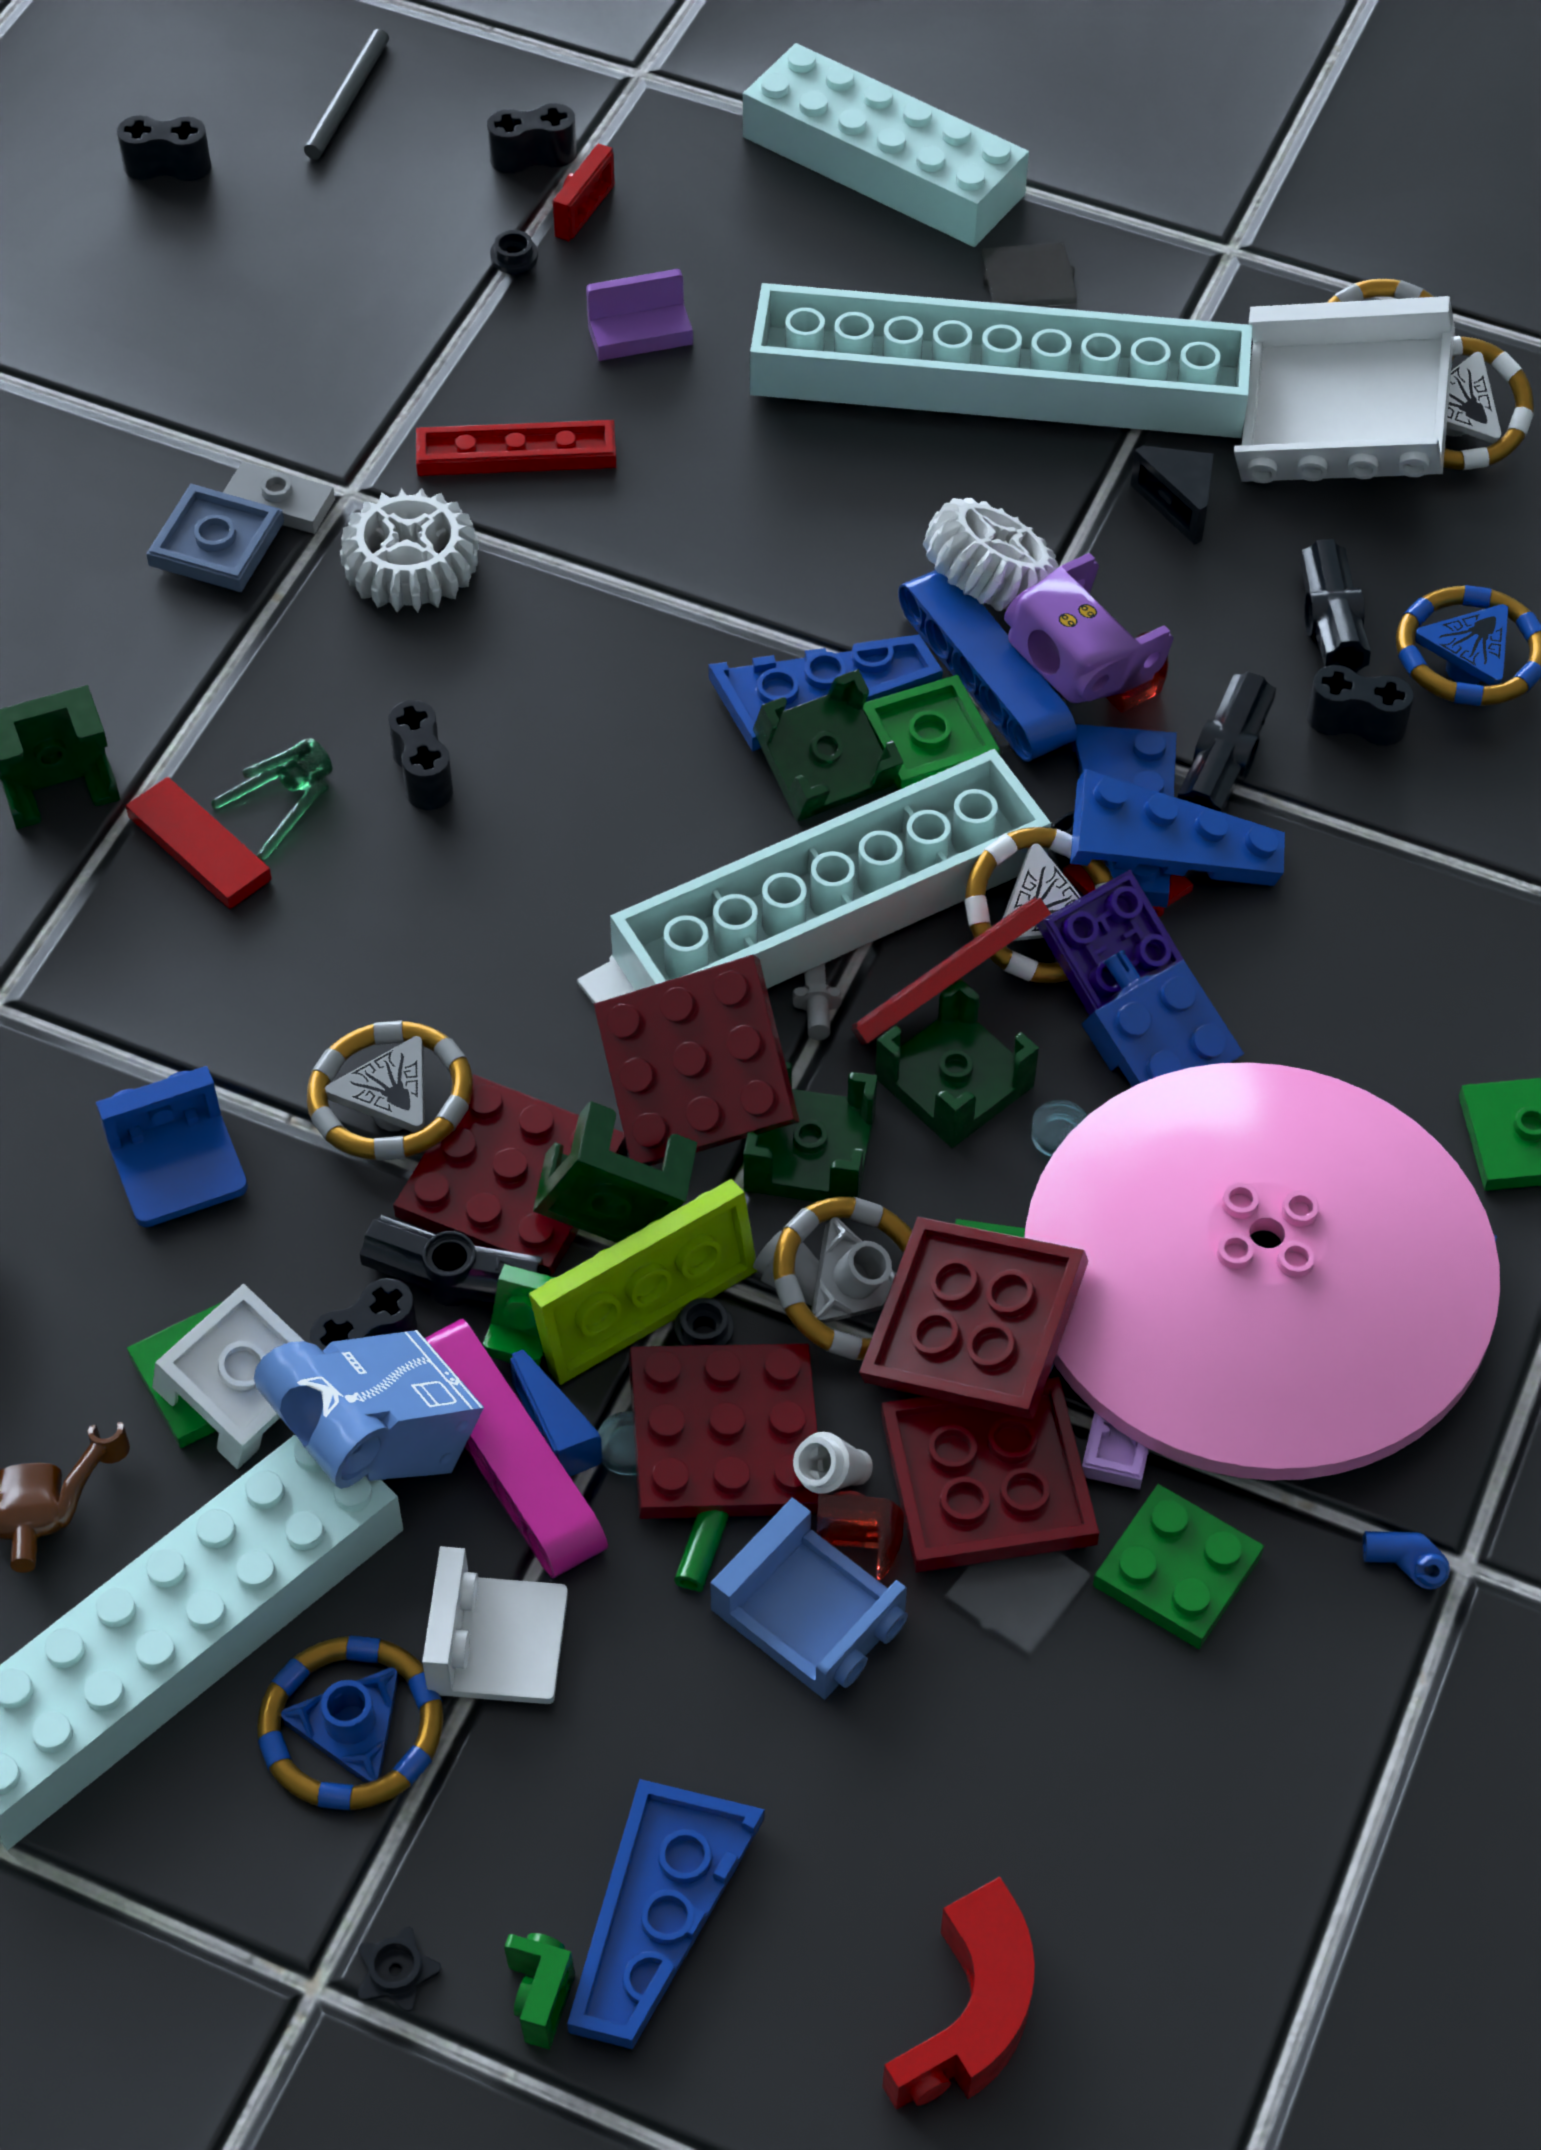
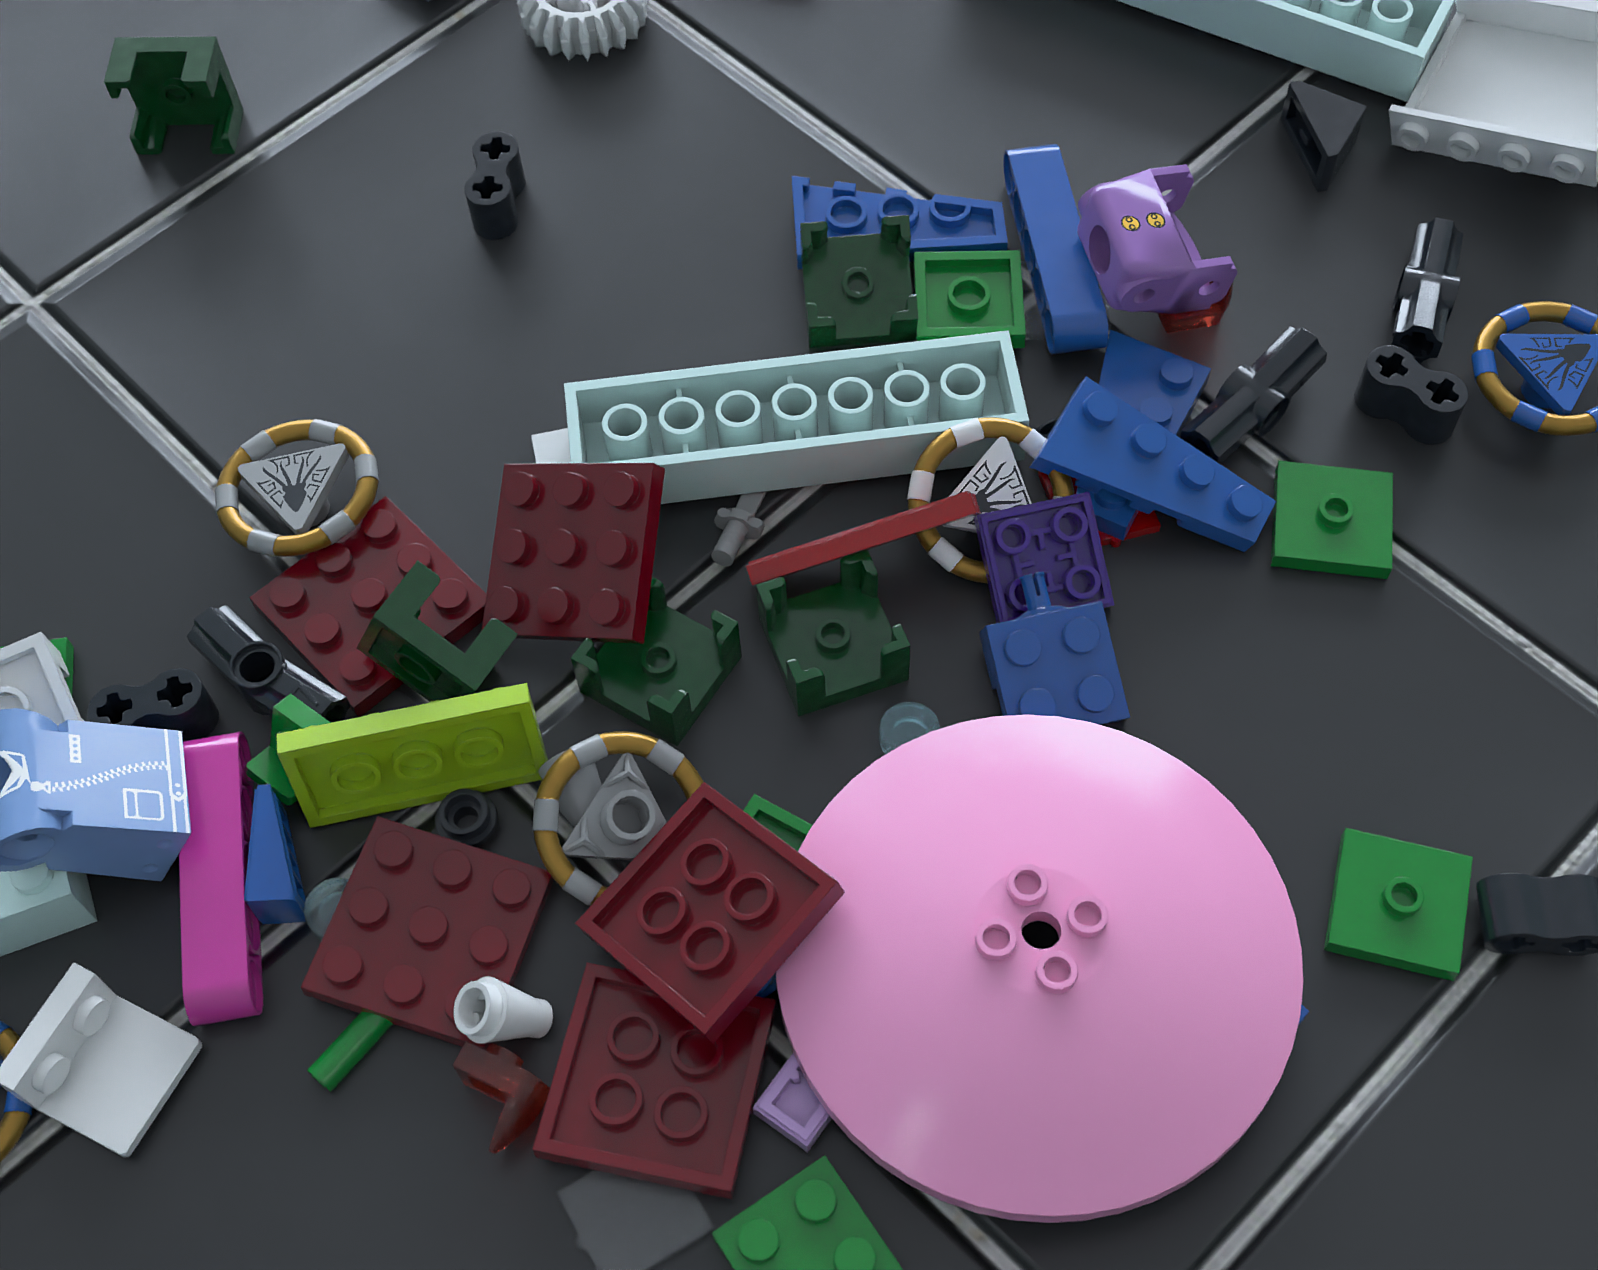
camera: 25 degrees right, 5 degrees up
(172, 1147) = (89, 477): blue bracket -> none
(198, 842) = (272, 210): red tile -> none
(297, 768) = (388, 166): clear green plant -> none
(807, 1602) = (414, 1148): medium blue panel -> none
(986, 552) = (1095, 136): white gear -> none
(1338, 834) = (1332, 519): none -> green plate

